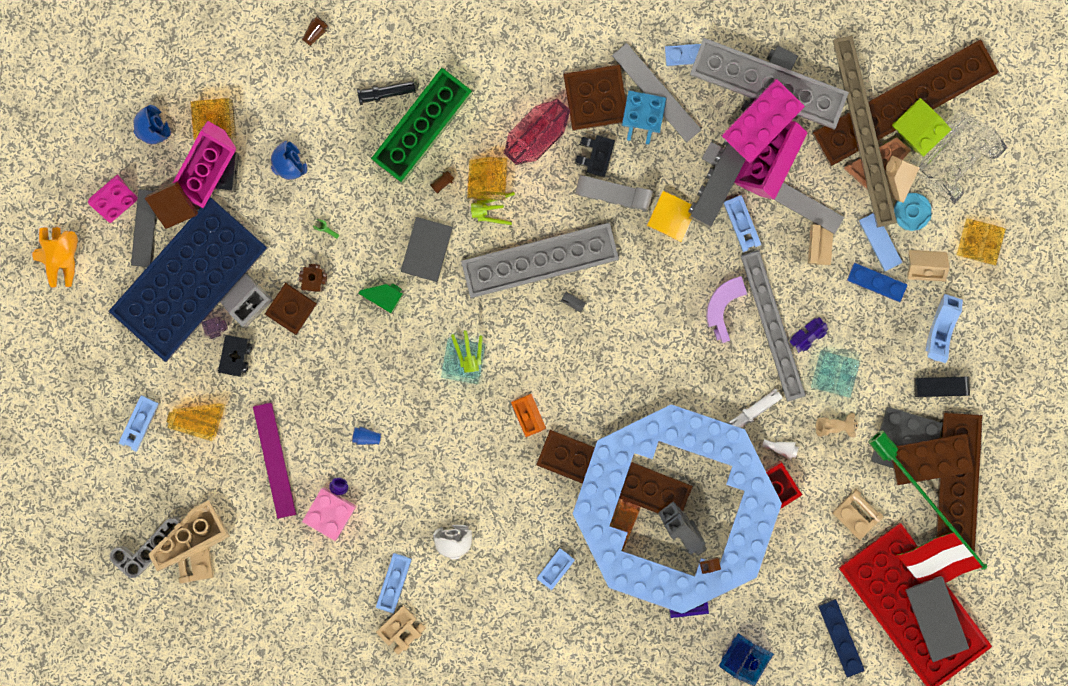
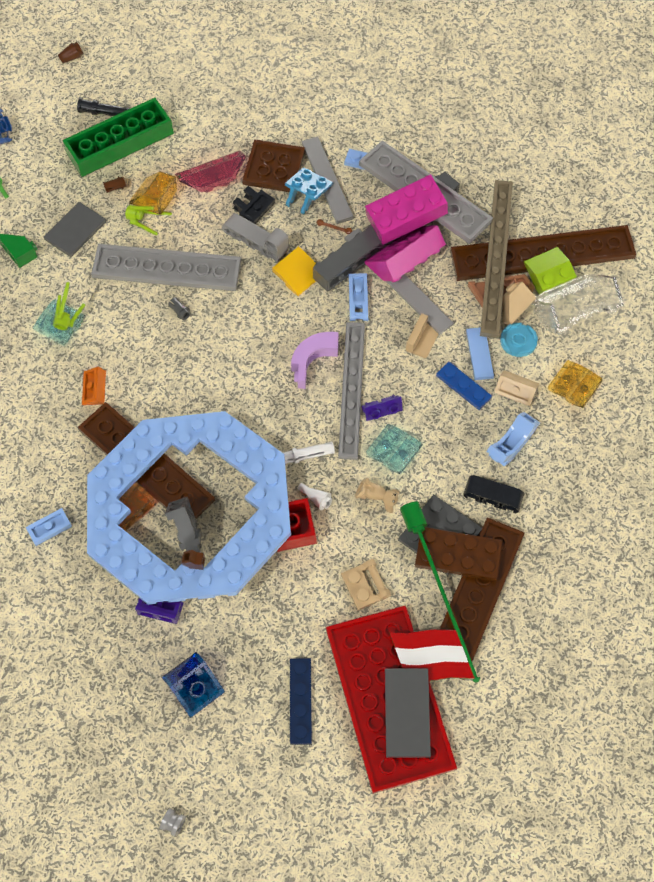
camera: 20 degrees right, 25 degrees down
(701, 147) = (320, 222): none -> dark orange hinge

